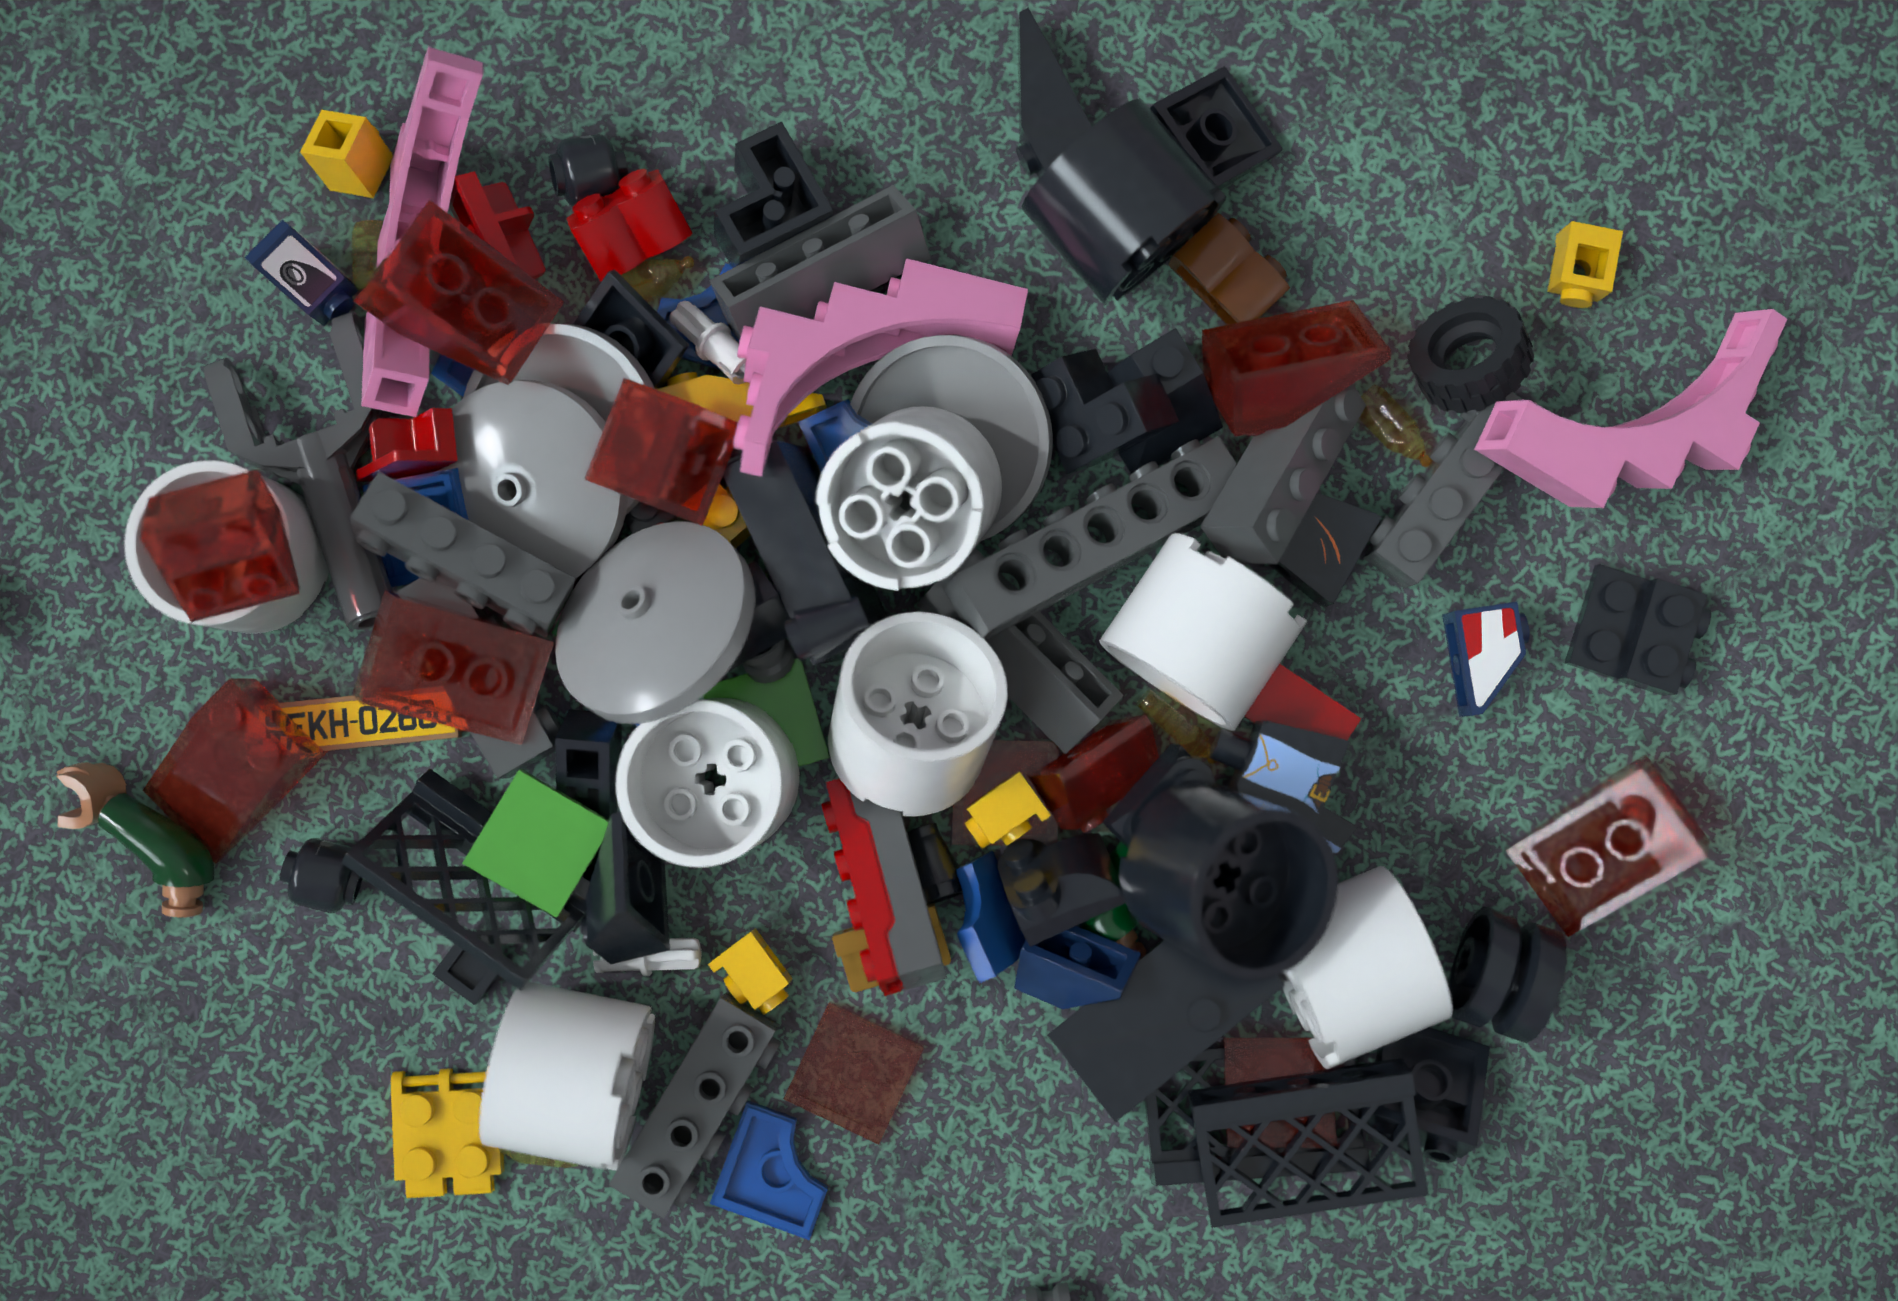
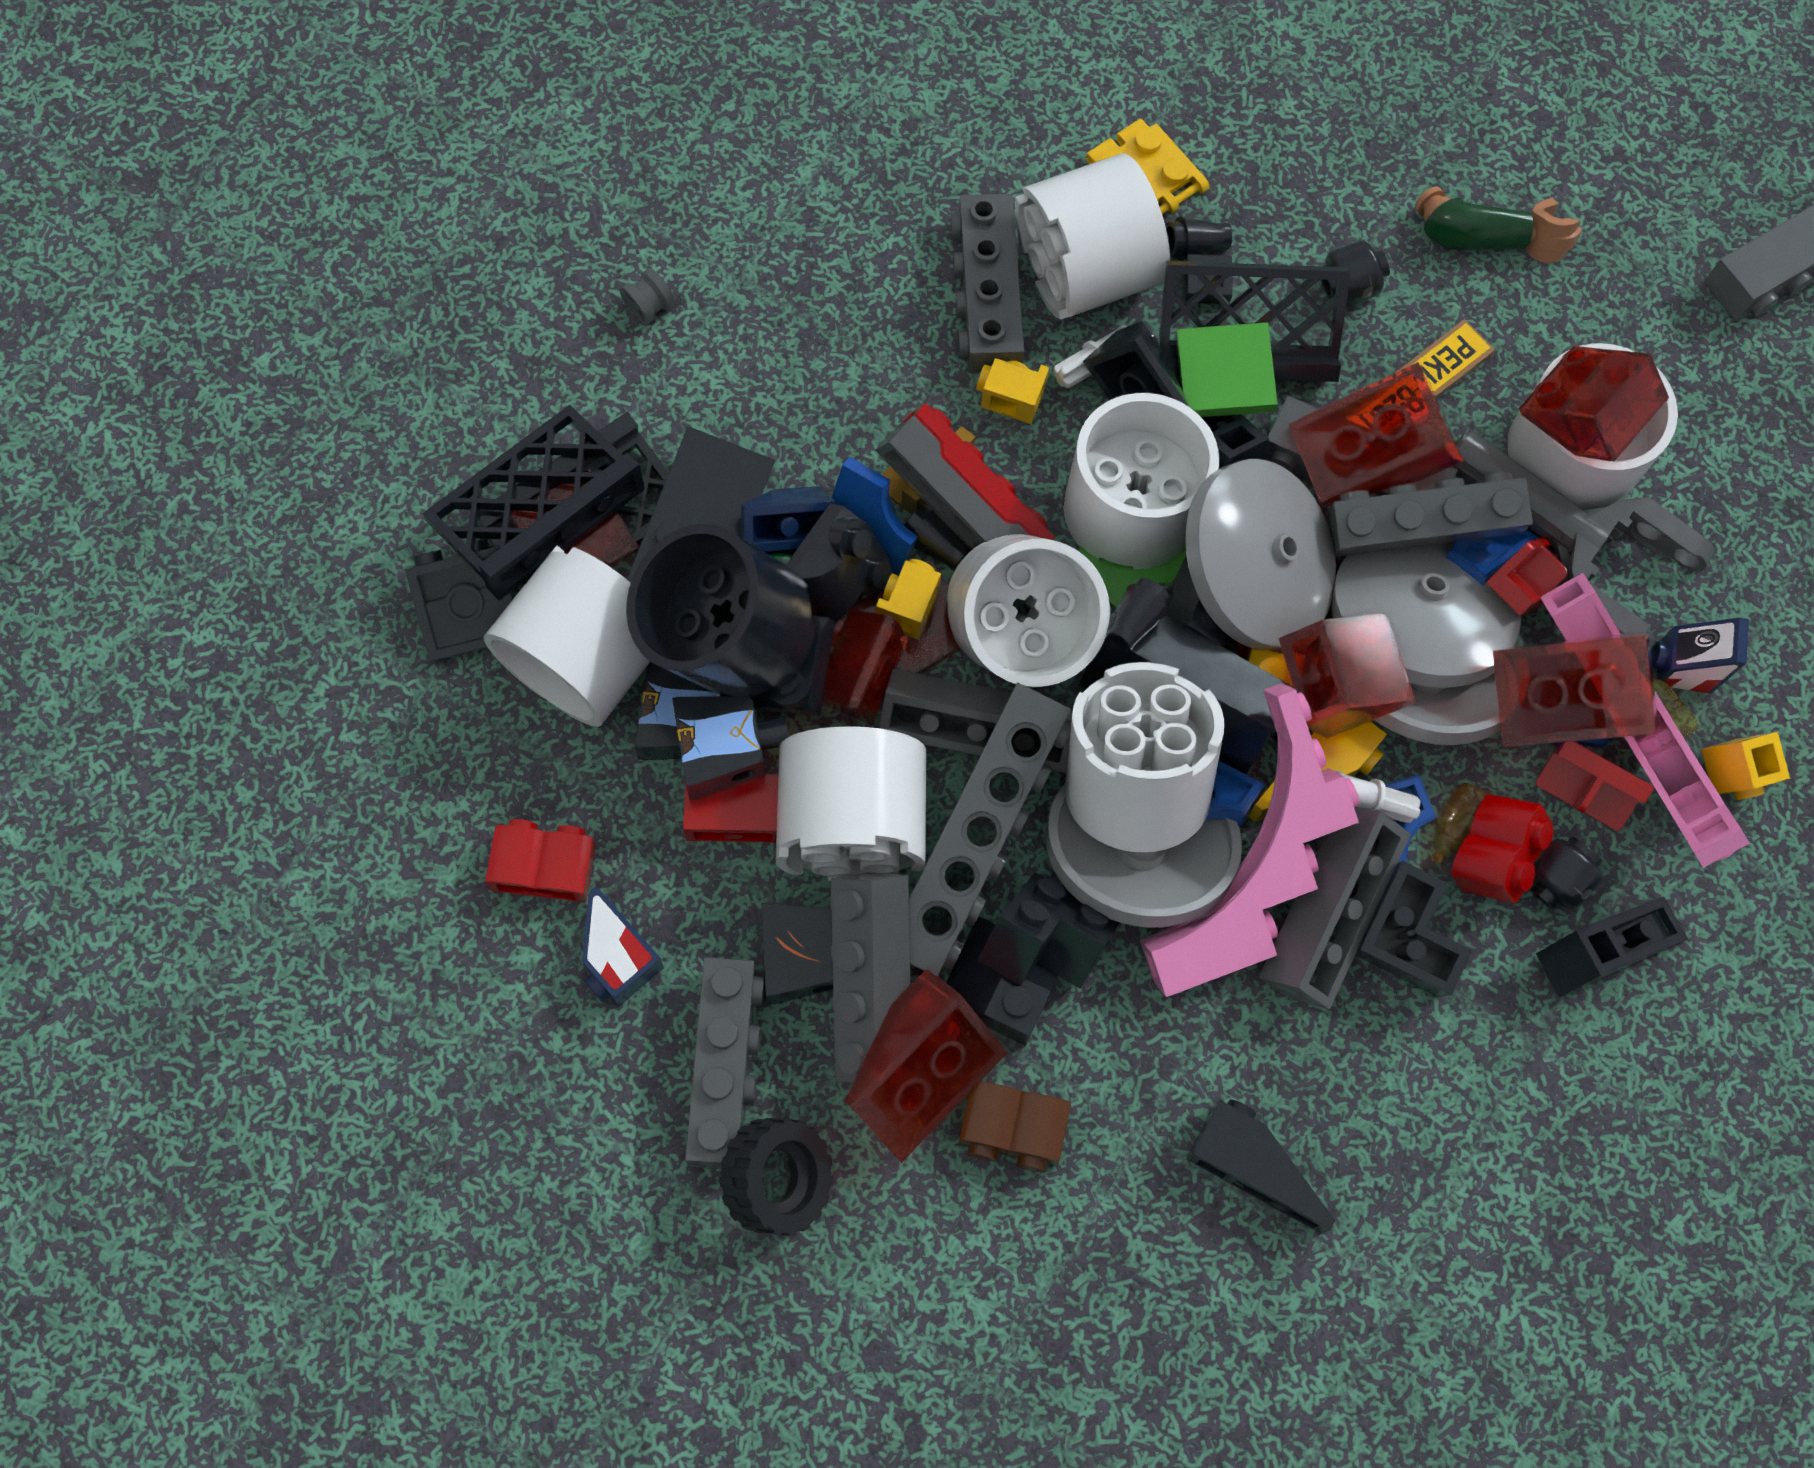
camera: 145 degrees right, 15 degrees down
(232, 765) = (1471, 308): clear red slope -> none
(451, 1021) = (1197, 237): none -> black cone
(598, 82) = (1610, 946): none -> black slope
(632, 322) = (1446, 766): black slope -> none
(765, 1175) = (908, 271): blue tile -> none
(854, 1072) = (892, 370): clear red tile -> none
(1122, 200) = (1143, 1104): black brick -> none
(1218, 127) = (1109, 1232): black slope -> none
(1393, 425) = (803, 1093): clear orange piece -> none
(1501, 779) = (540, 861): none -> red brick
(1507, 974) = (447, 709): black wheel -> none
(1593, 249) = (725, 1351): yellow brick -> none
(1609, 846) = (419, 867): clear red slope -> none
(1638, 631) = (495, 1051): black plate -> none
(1699, 425) = (543, 1254): bright pink arch -> none

